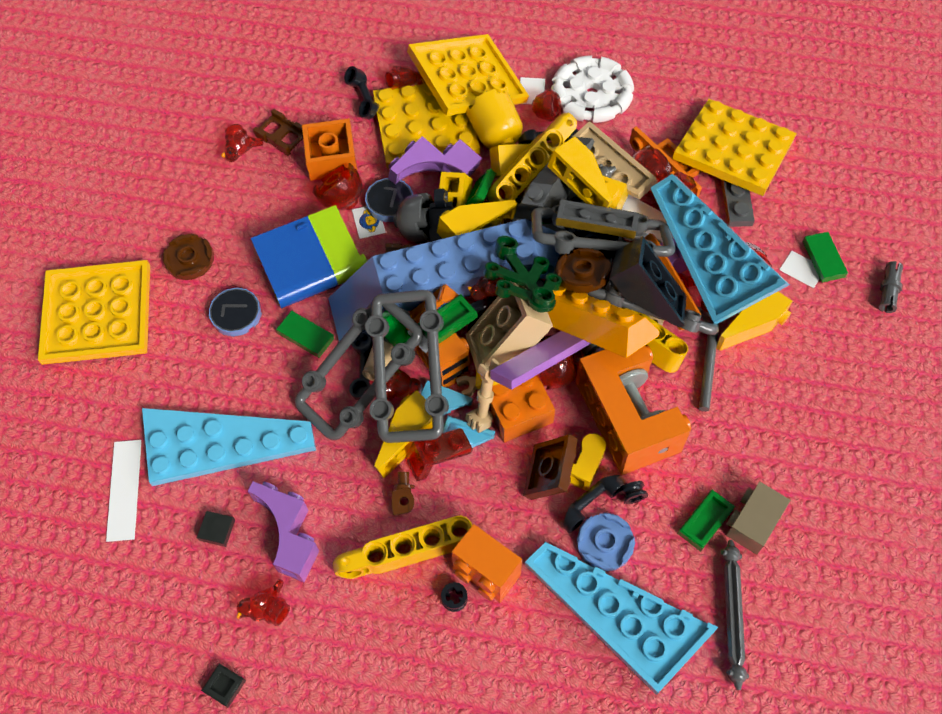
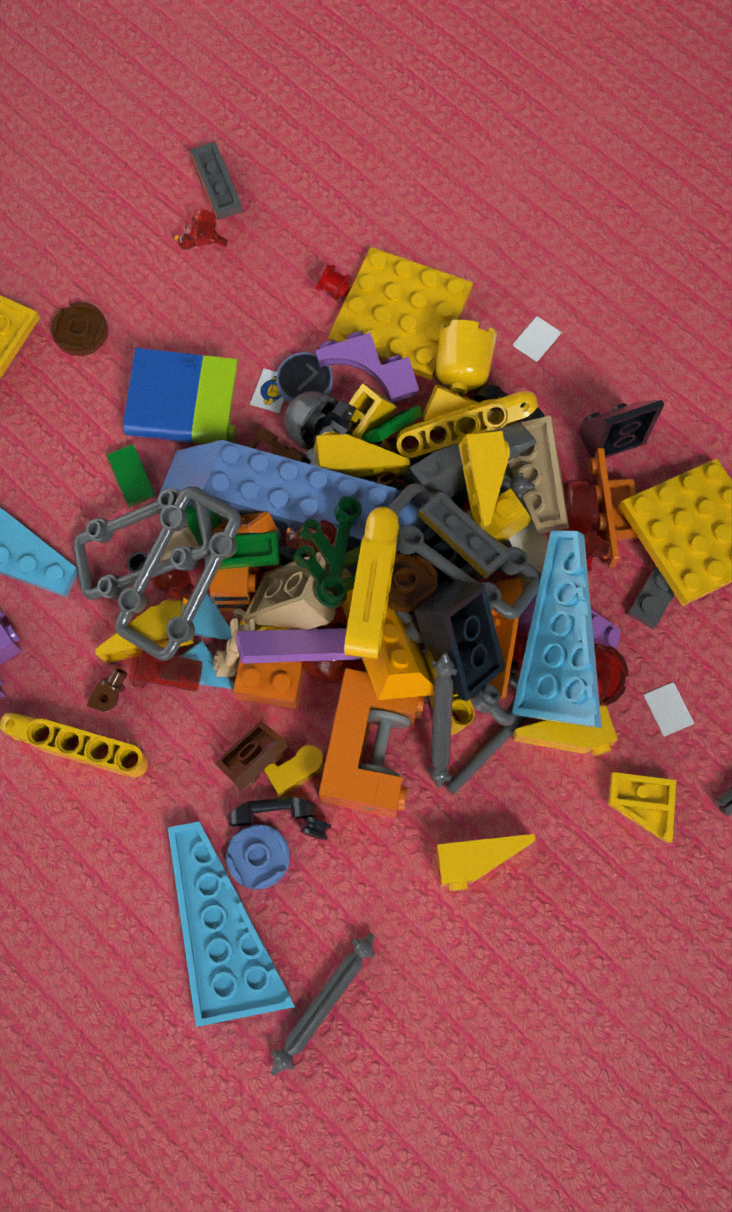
camera: 35 degrees right, 10 degrees up
(224, 104) = (216, 180): none -> dark grey plate
(235, 311) = (83, 413): black tile -> none
(286, 127) = (259, 240): reddish brown piece -> none
(328, 146) = (279, 291): orange brick -> none
(340, 188) = (259, 342): clear red cylinder -> none
(358, 79) = (364, 223): black bar -> none
(365, 125) = (334, 283): none -> red brick
(403, 76) = (411, 249): clear red animal -> none
(459, 589) = (95, 810): black bush -> none
(464, 69) = (476, 280): yellow plate -> none
(486, 564) = (126, 808): orange brick -> none
(547, 105) = (535, 367): clear red cone -> none
(569, 278) = (372, 585): none -> yellow piece
(593, 74) = (605, 359): white plate -> none
(636, 108) = (620, 428): none -> black slope
(673, 352) = (442, 720): none -> dark grey wheel
(706, 520) = (366, 899): green tile -> none
(757, 518) = (412, 930): dark tan brick -> none
(758, 443) = (471, 860): none -> yellow slope
(825, 257) = (701, 711): green tile -> none
(838, 334) = (645, 802): none -> yellow wing

